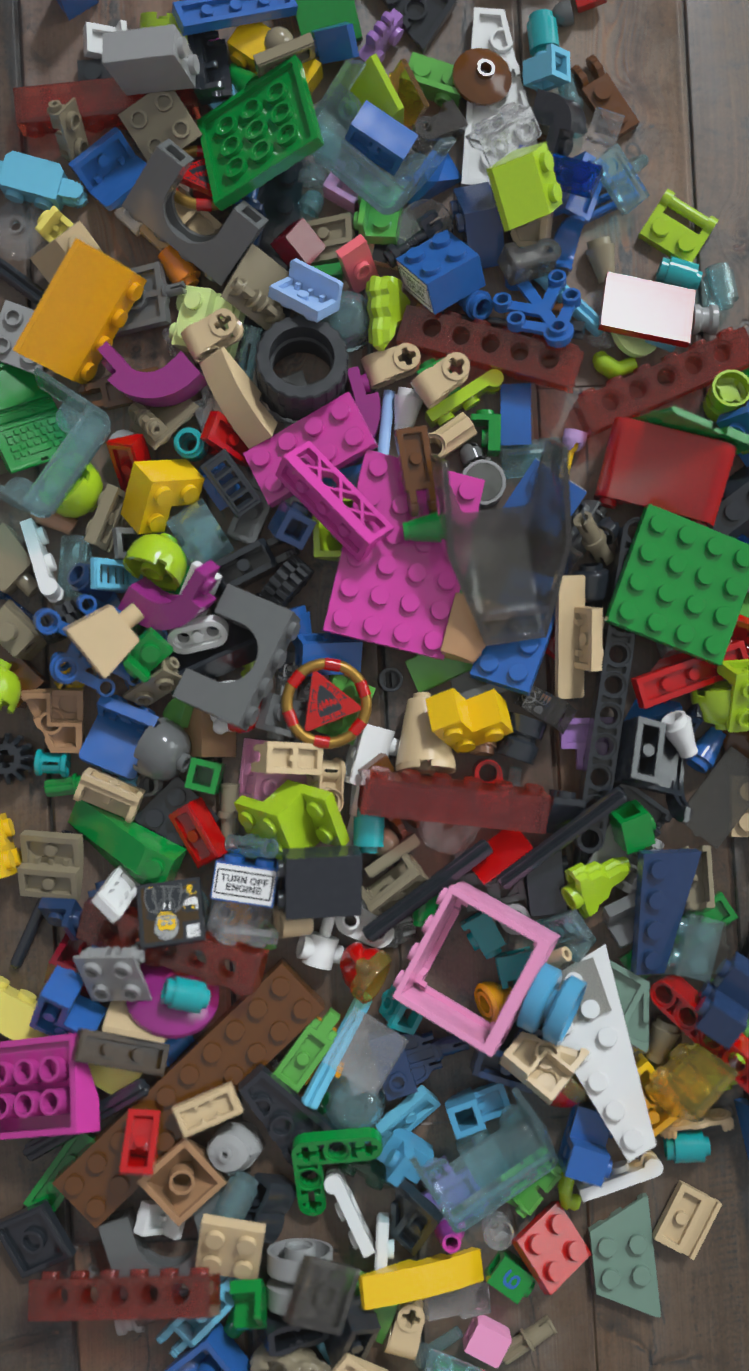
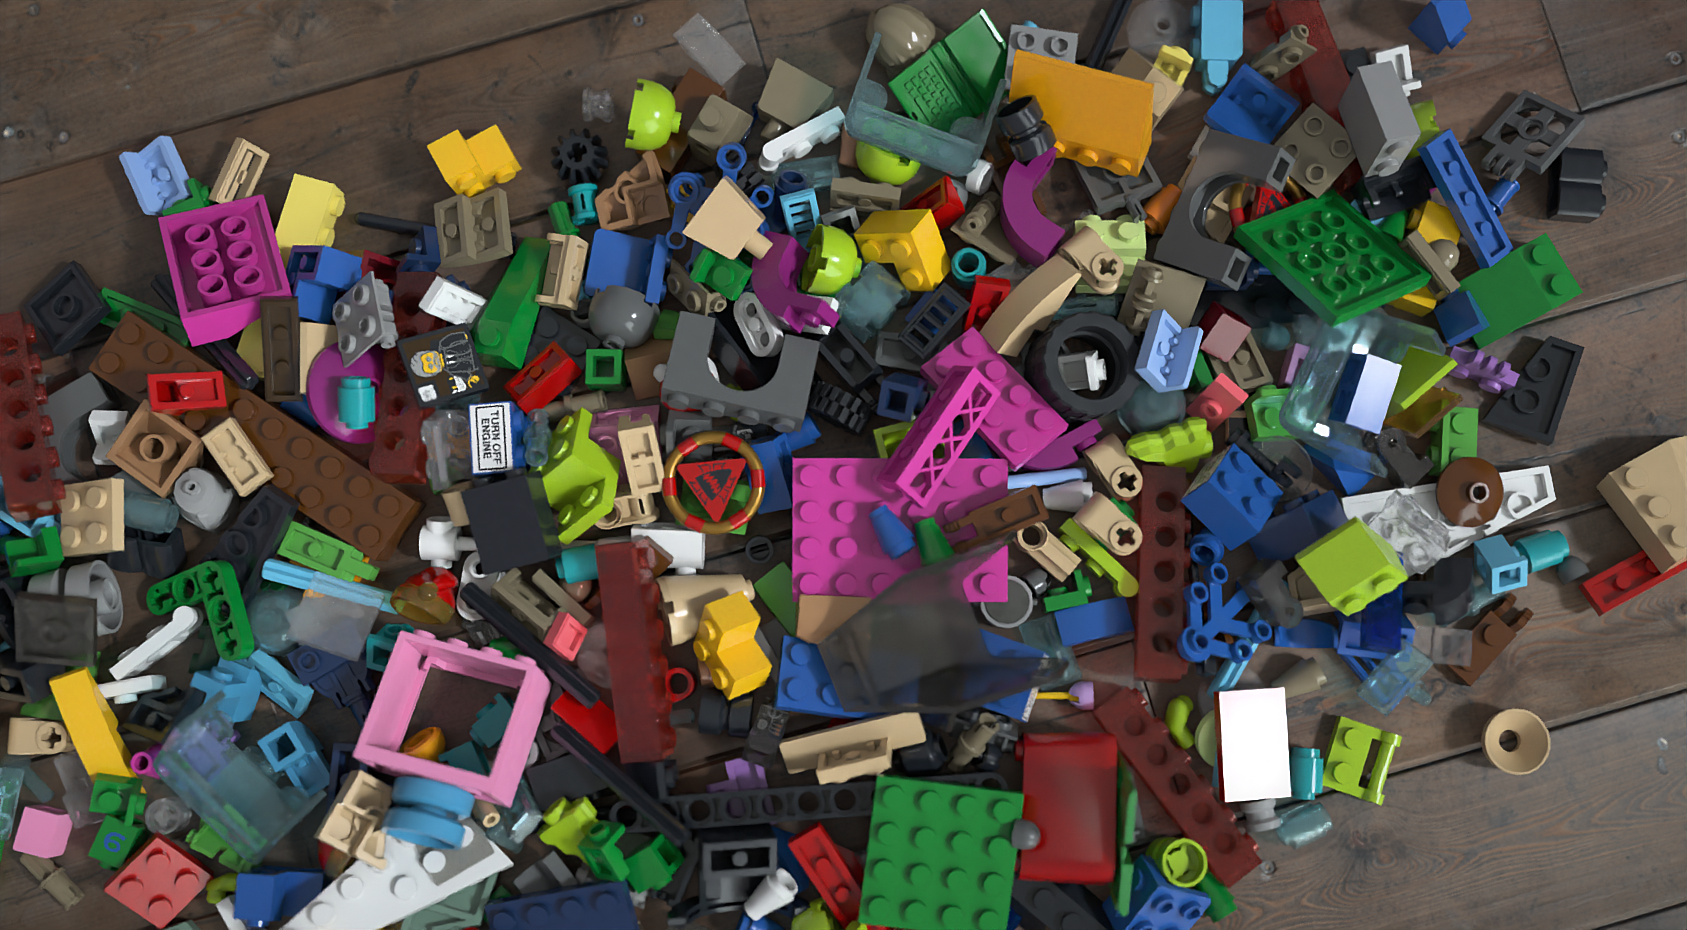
camera: 80 degrees right, 5 degrees down
(82, 362) = (1028, 132): none -> black wheel
(117, 416) = (980, 178): none -> white tile
(303, 367) = (1082, 370): none -> white bracket
(407, 560) = (891, 533): none -> blue cone
(427, 858) = (565, 636): none -> coral tile
(474, 1269) = (118, 796): none -> green bracket
(615, 865) = (601, 853): none -> green bracket
(682, 510) = (1025, 834): none -> dark grey hinge
(698, 86) = (1531, 746): none -> tan piece

